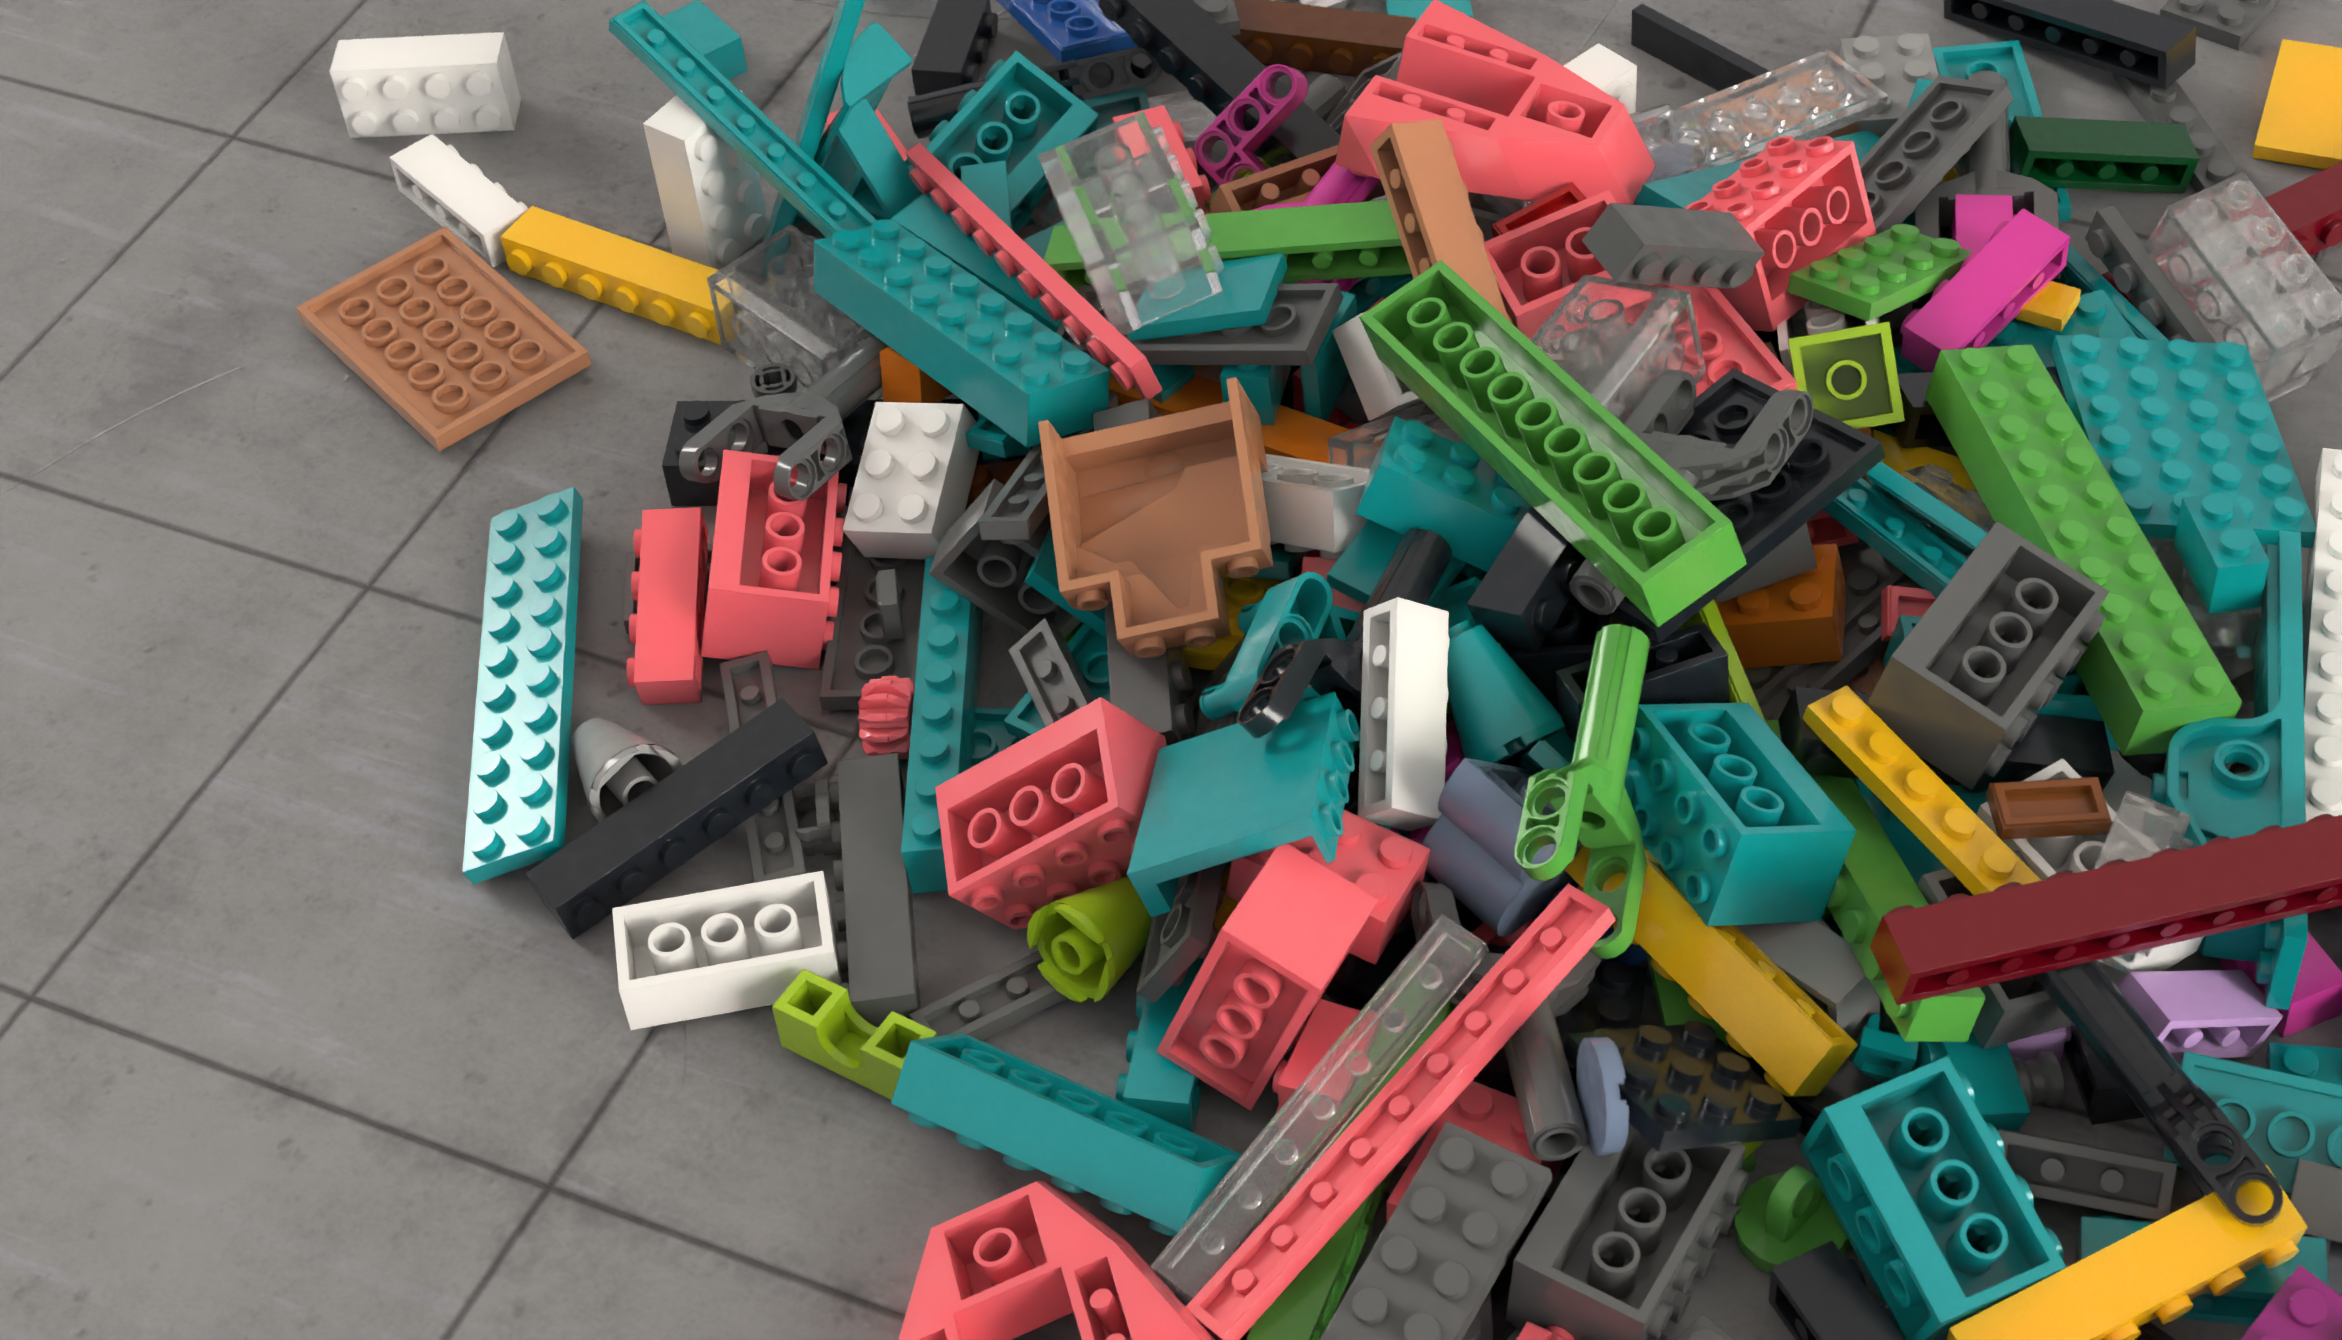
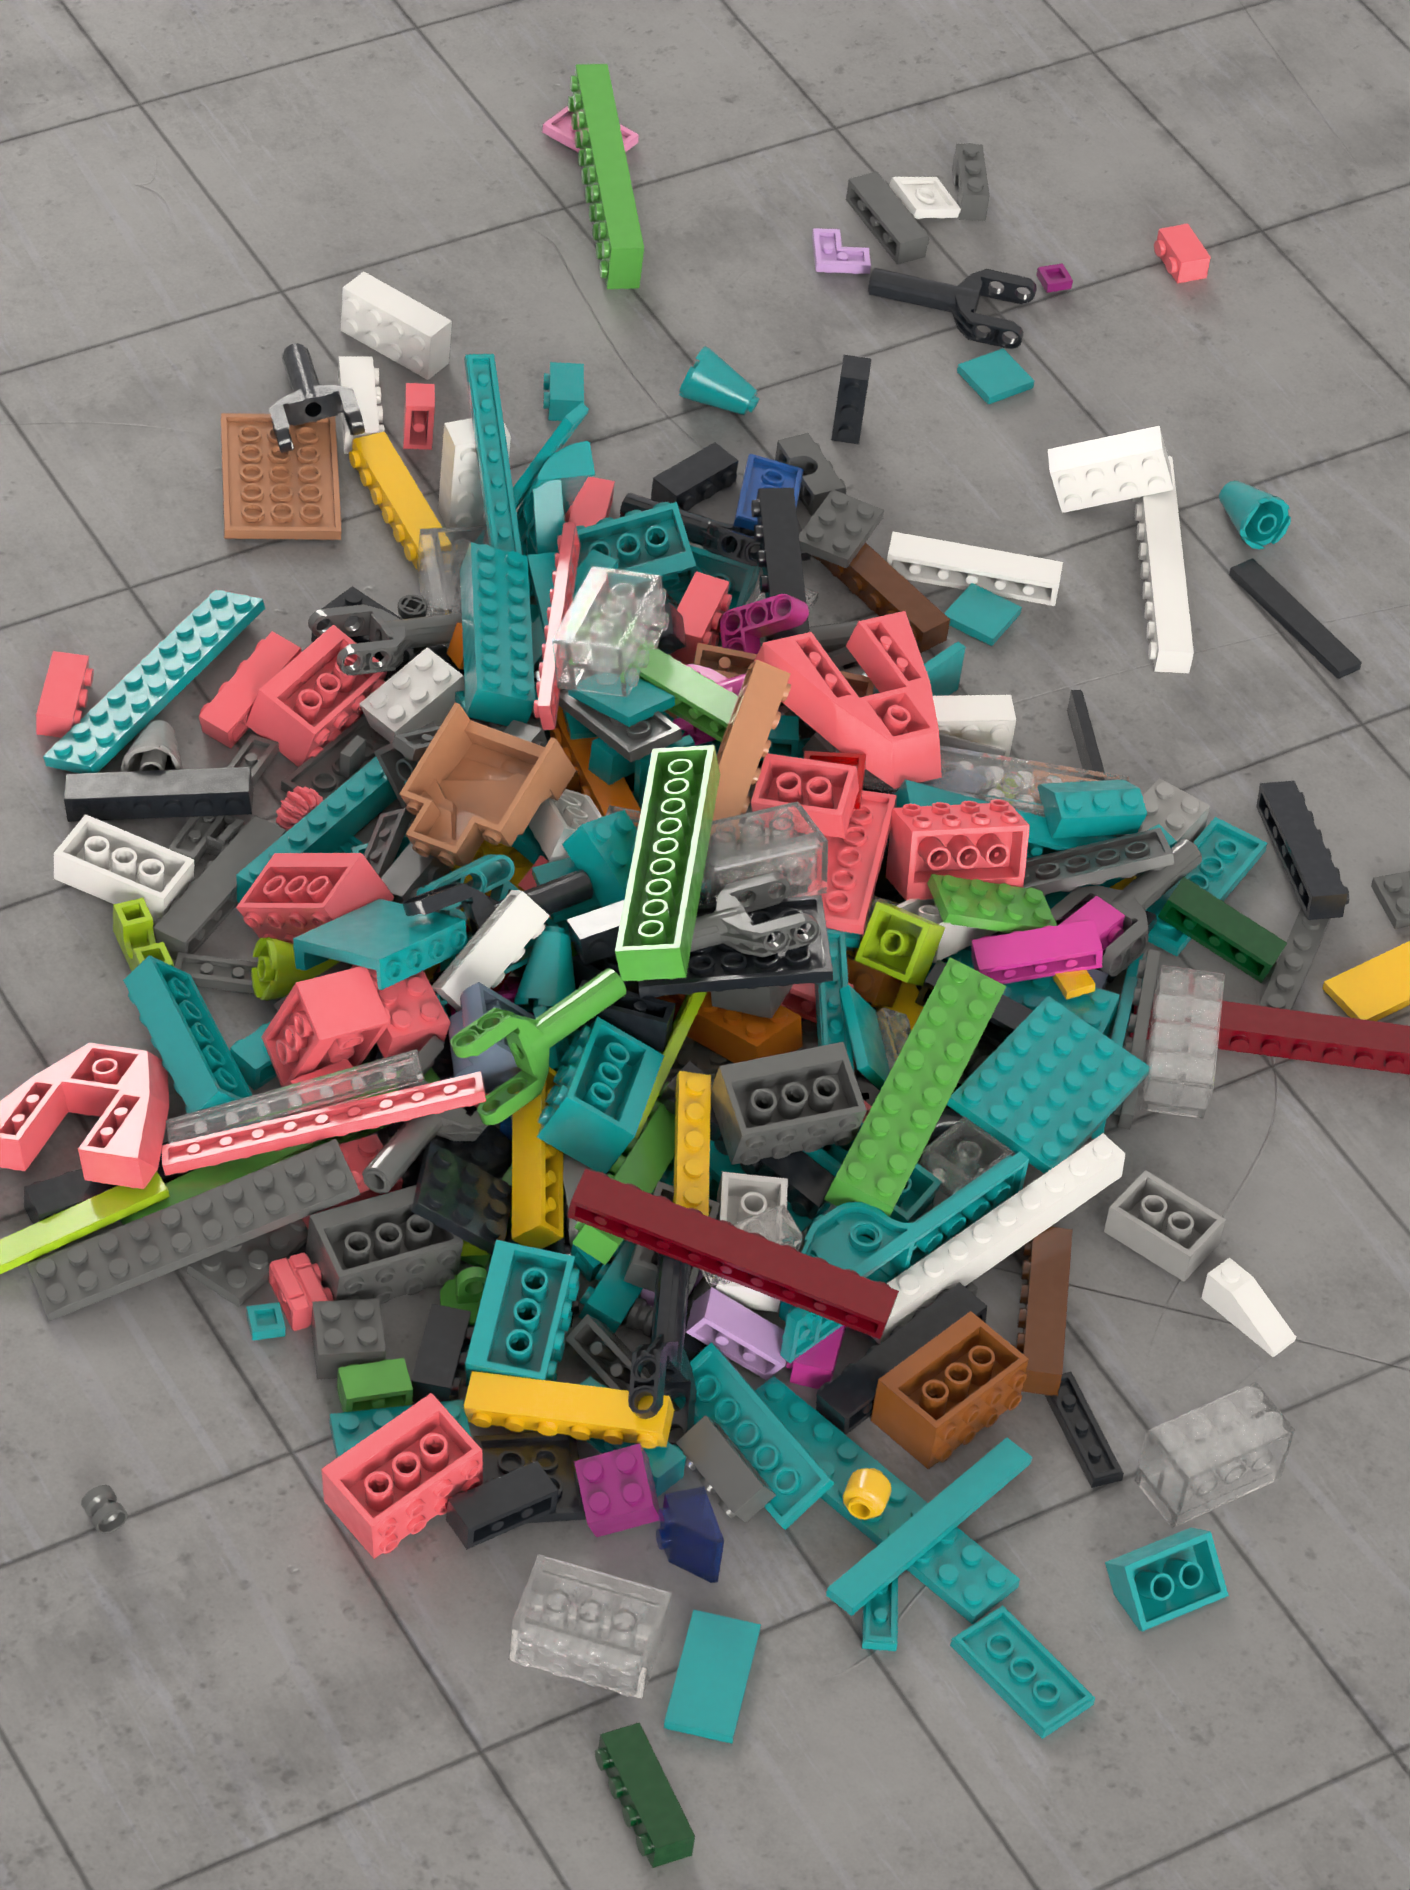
camera: 25 degrees right, 0 degrees up
(409, 224) = (310, 399): none -> black piece
(415, 773) = (63, 694): none -> coral brick
(557, 164) = (418, 416): none -> coral brick
(1599, 1095) = (405, 1170): sand blue tile -> none
(1673, 246) = (852, 815): dark grey brick -> none
(1843, 94) = (1092, 808): none -> teal slope
(2048, 808) = (749, 1191): dark orange tile -> none
(2221, 552) = (978, 1141): teal brick -> none

